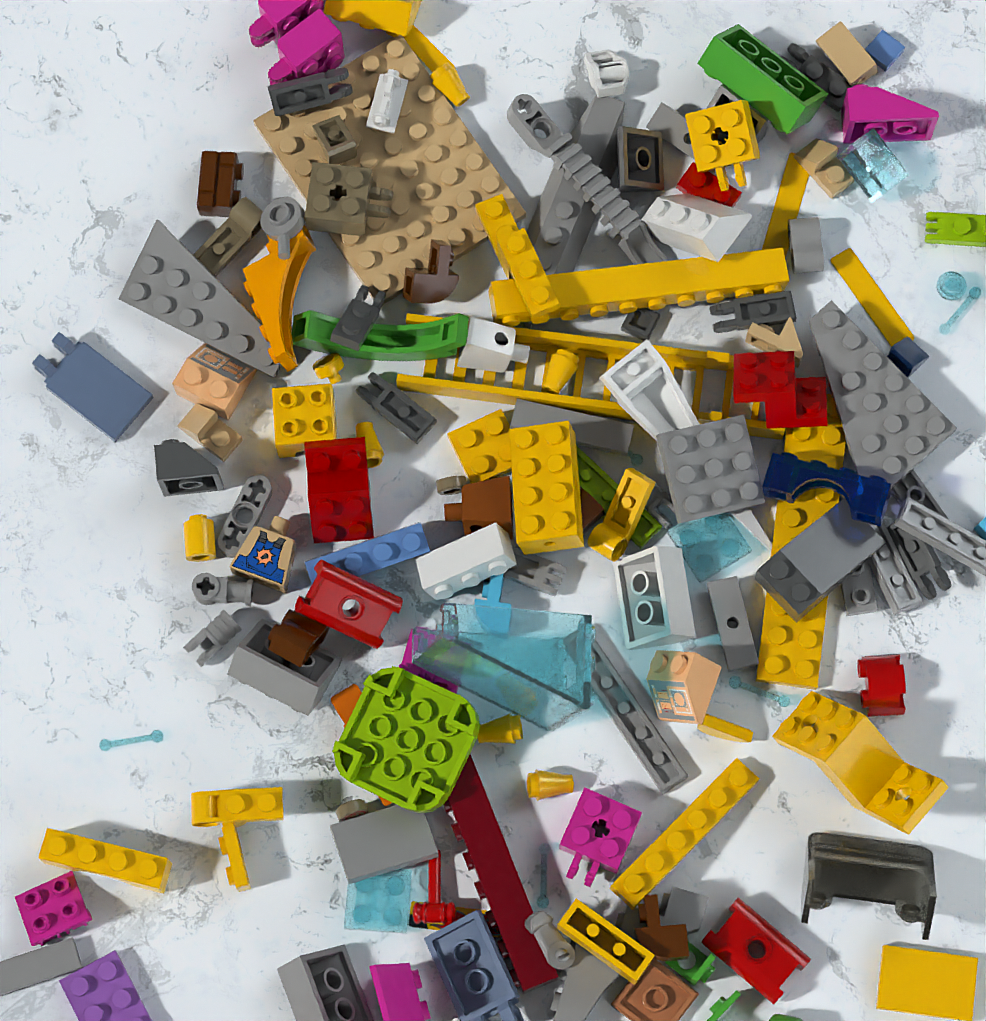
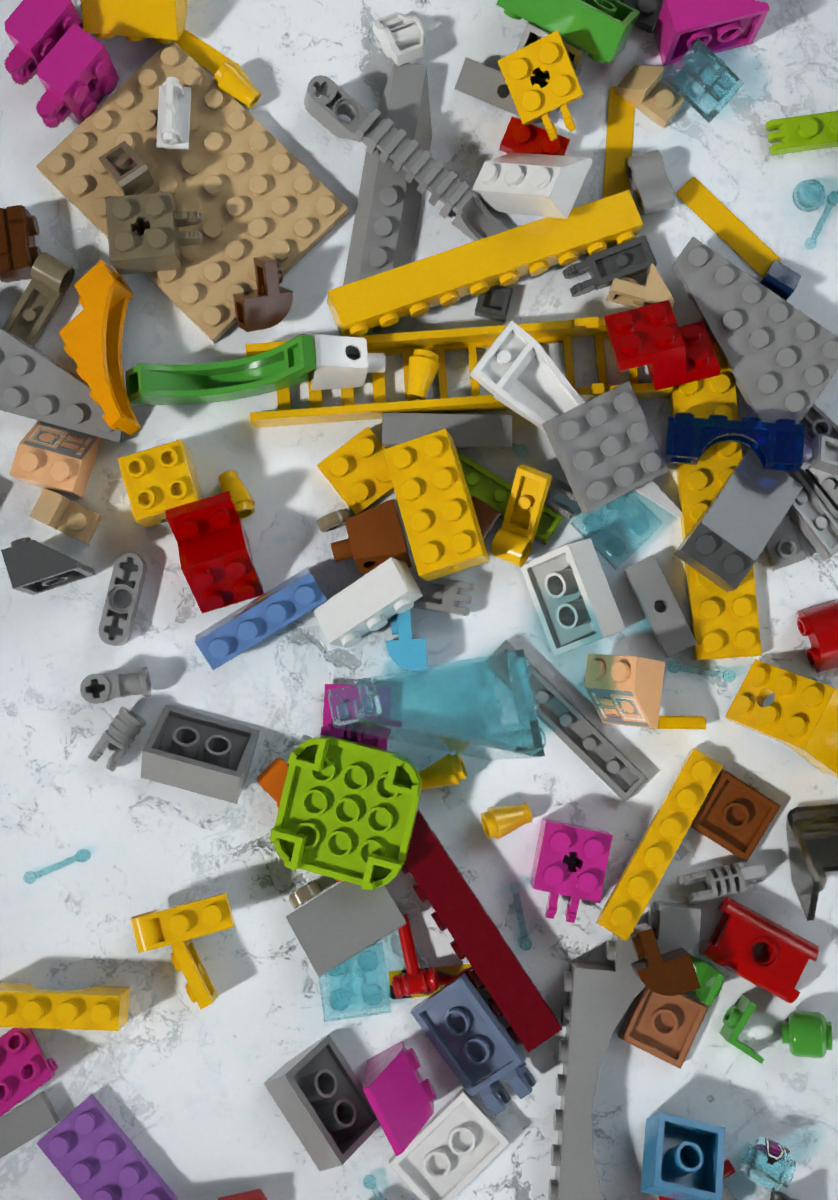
camera: 15 degrees left, 10 degrees up
(199, 538) = (79, 635): yellow brick -> none
(267, 556) = (155, 638): torso -> none
(282, 221) = (88, 271): light grey piece -> none
(297, 637) = (207, 720): reddish brown brick -> none
(309, 91) = (85, 121): dark grey hinge -> none
(329, 367) = (176, 420): yellow tile -> none
(335, 587) = (233, 665): red piece -> none
(358, 319) = (194, 362): dark grey hinge -> none
(398, 408) = (259, 449): dark grey hinge -> none
(517, 256) = (351, 257): yellow bracket -> none
(554, 946) = (549, 997): light grey piece -> none
(605, 941) = (607, 991): yellow brick -> none
(639, 160) = (455, 125): flat silver slope -> none
(736, 882) = (723, 881): none -> light grey hinge
(761, 827) = (734, 815): none -> dark orange tile

